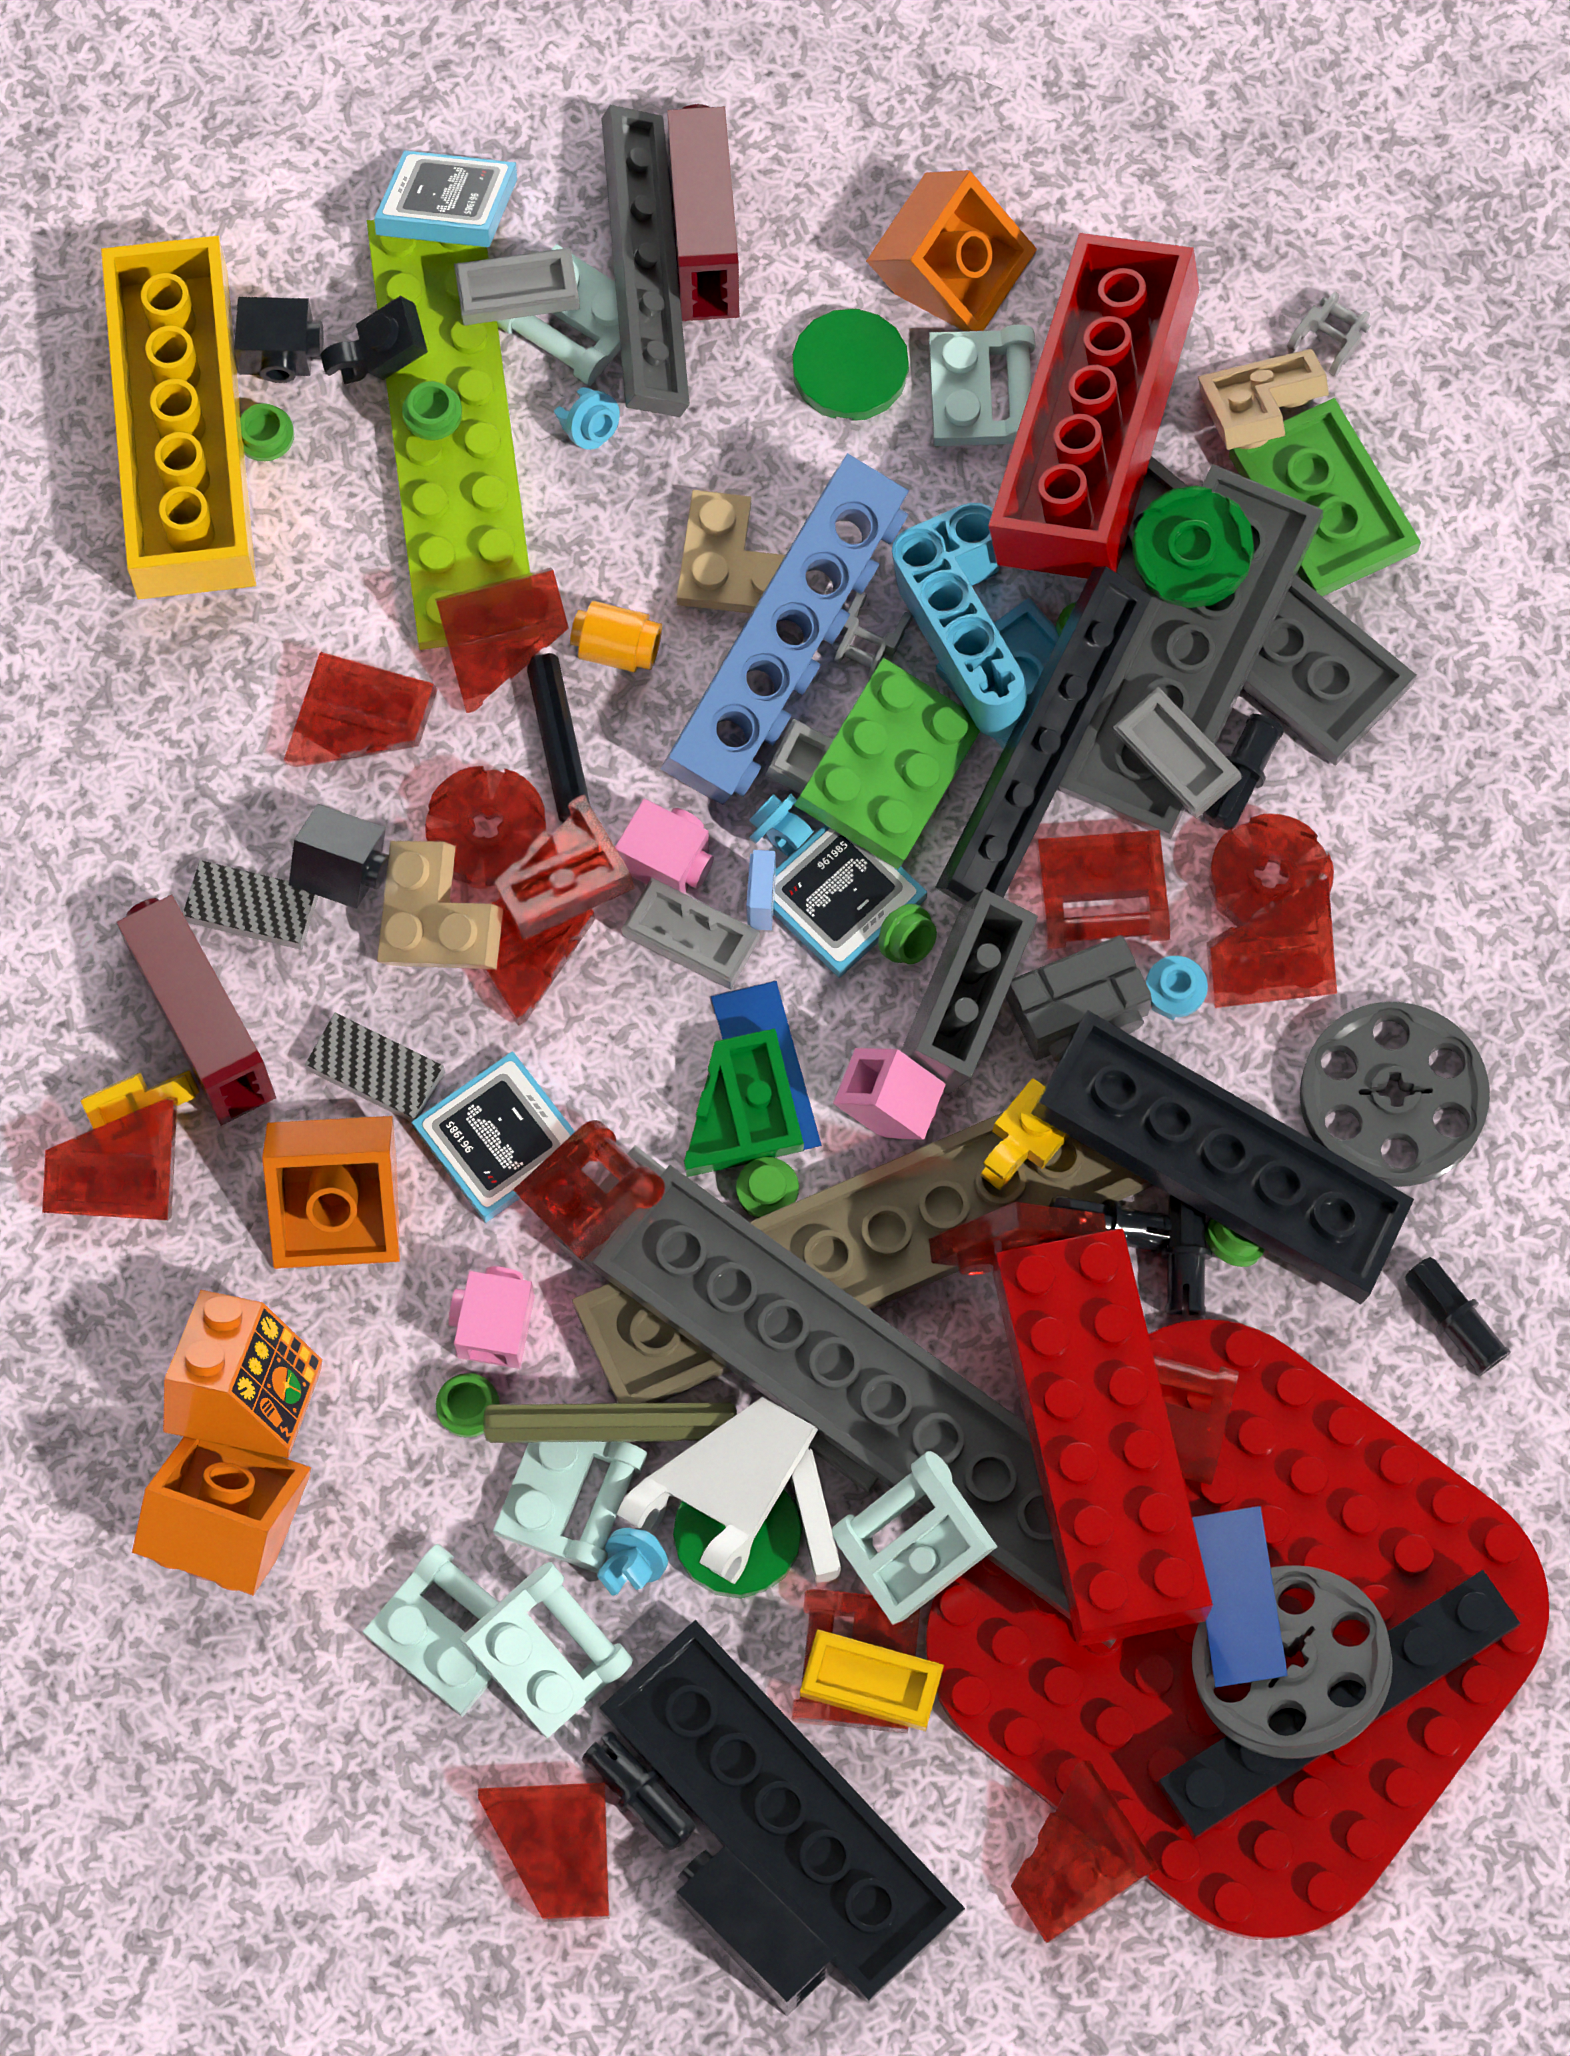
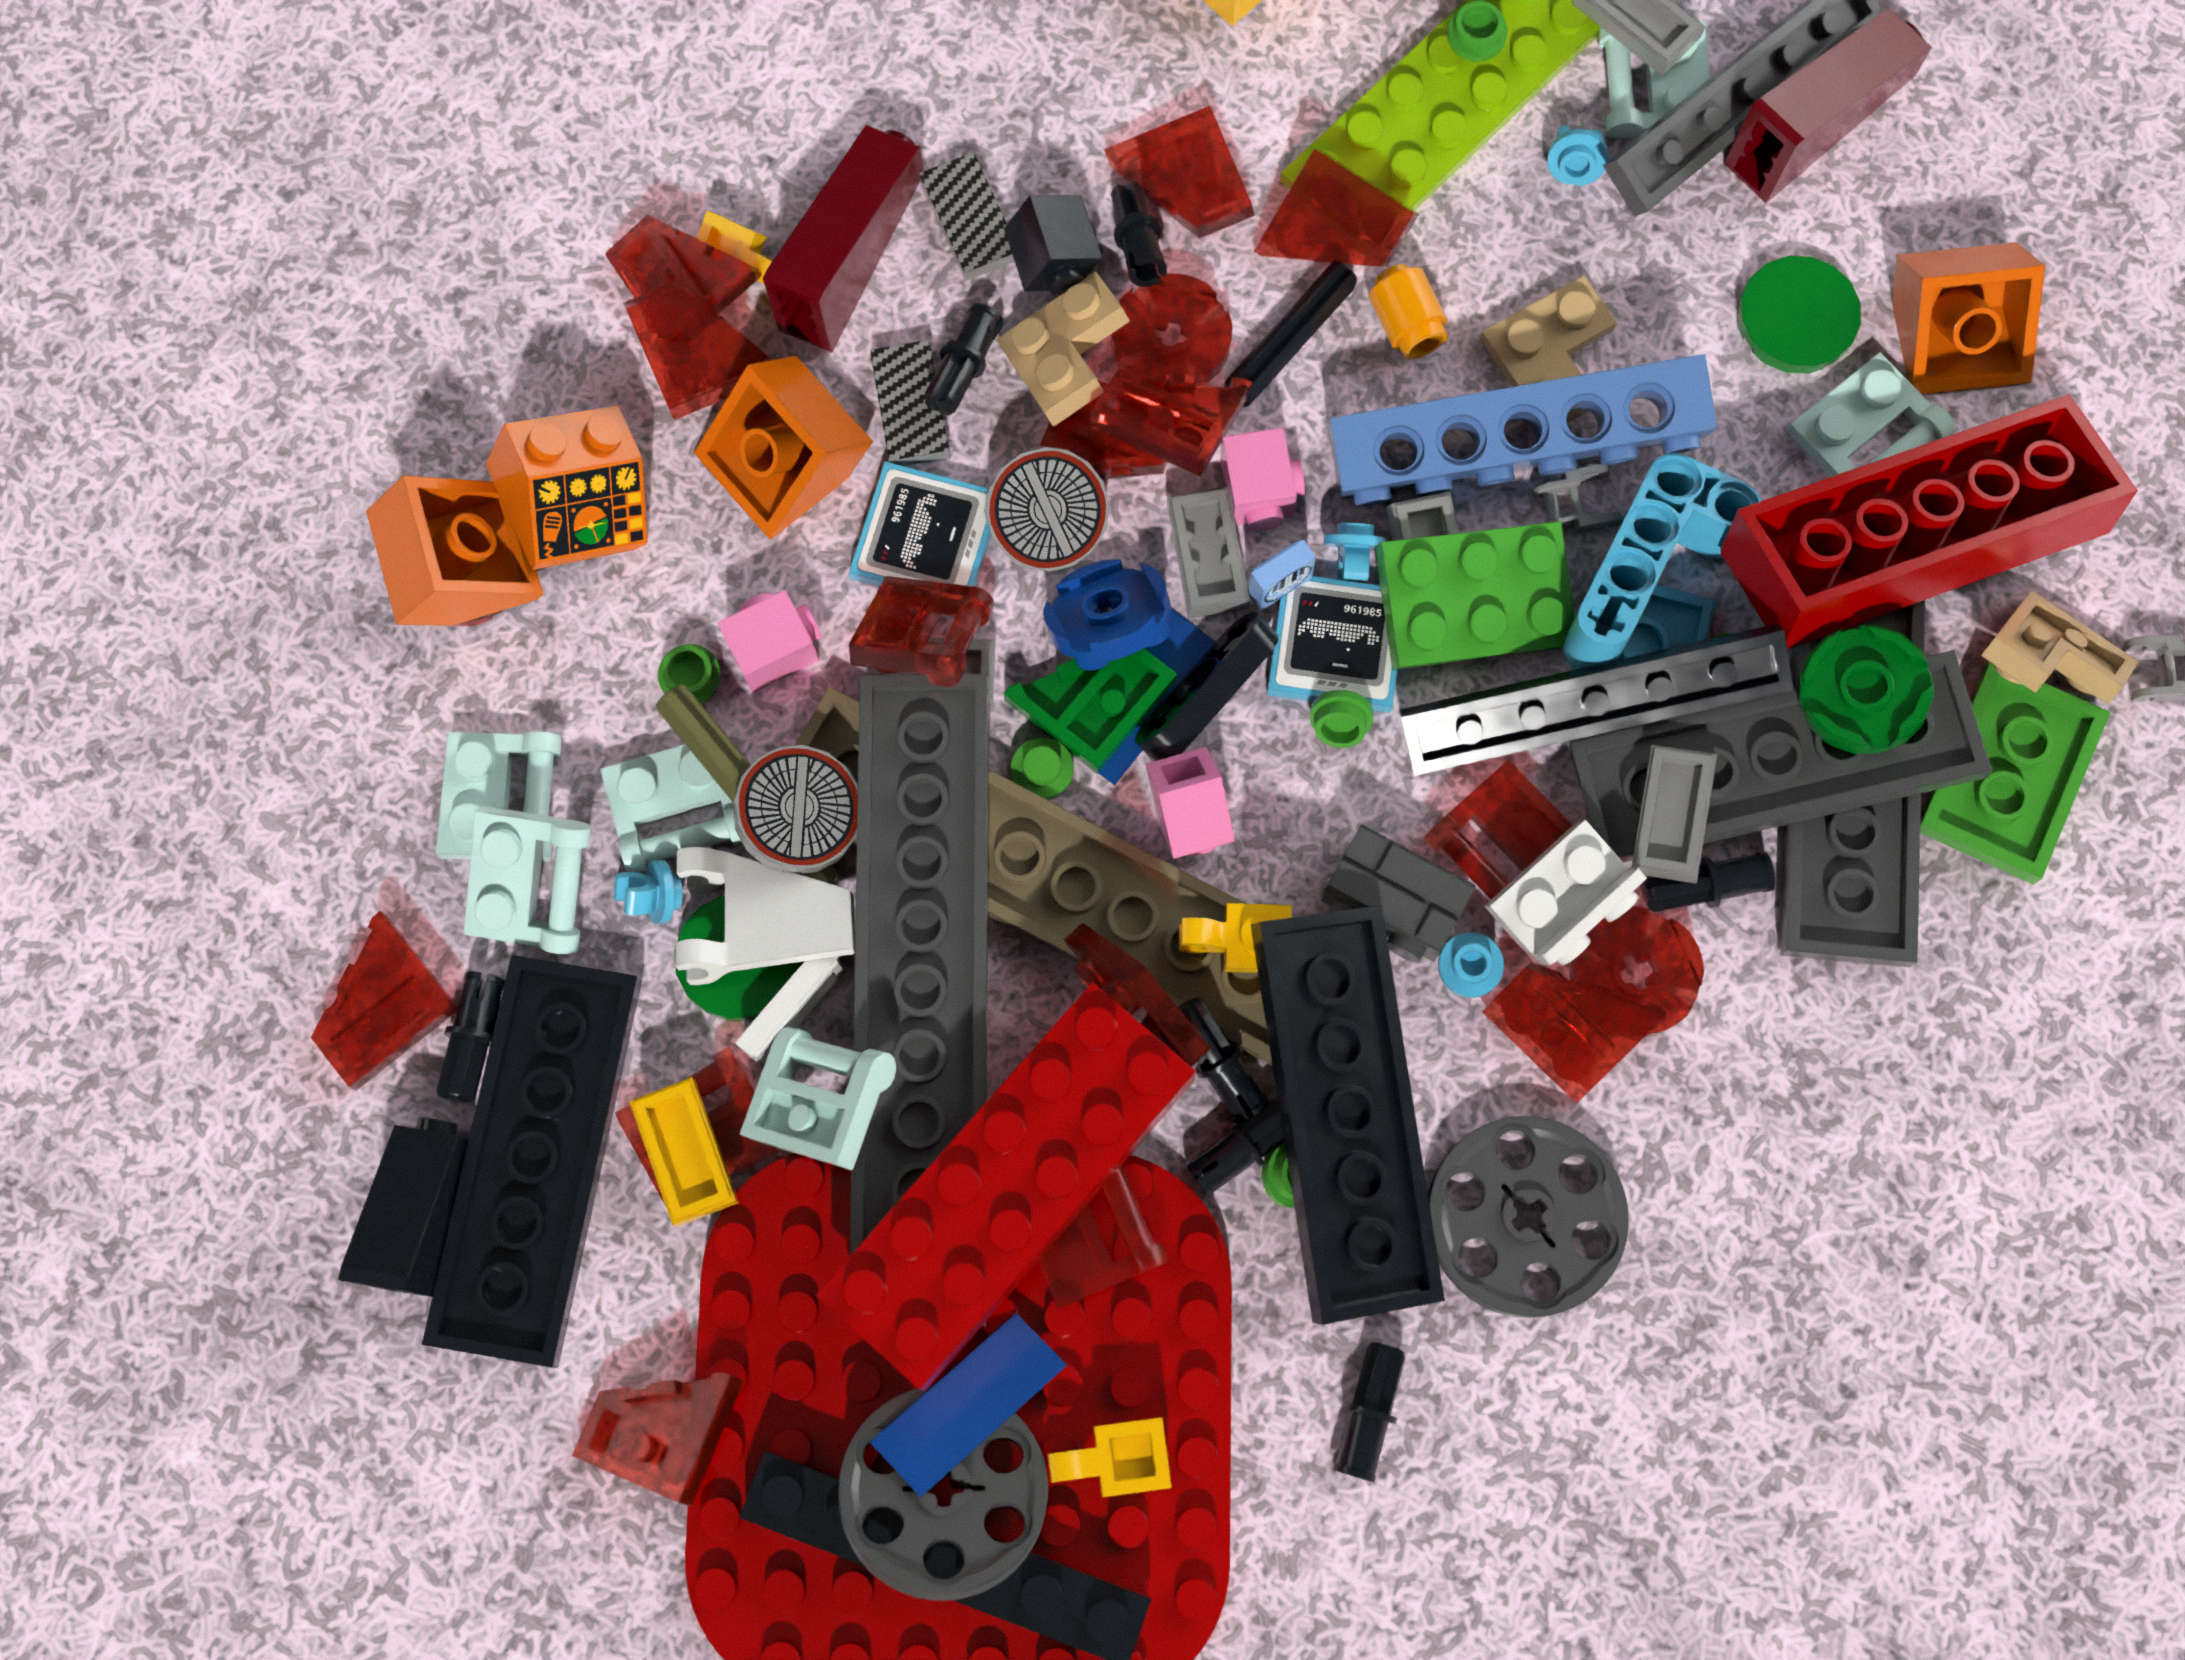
camera: 55 degrees right, 5 degrees up
(196, 1199) = (690, 347): none -> clear red wing
(375, 996) = (963, 359): none -> black axle
(382, 787) = (1138, 235): none -> black axle
(559, 1025) = (1046, 508): none -> tile
(663, 1390) = (796, 809): none -> tile
(705, 1060) = (1095, 638): none -> blue plate
(797, 990) = (1207, 687): none -> black beam
(968, 988) = (1328, 798): dark grey brick -> none
(1180, 877) = (1565, 896): none -> white bracket
(1362, 1514) = (1125, 1457): none -> yellow plate

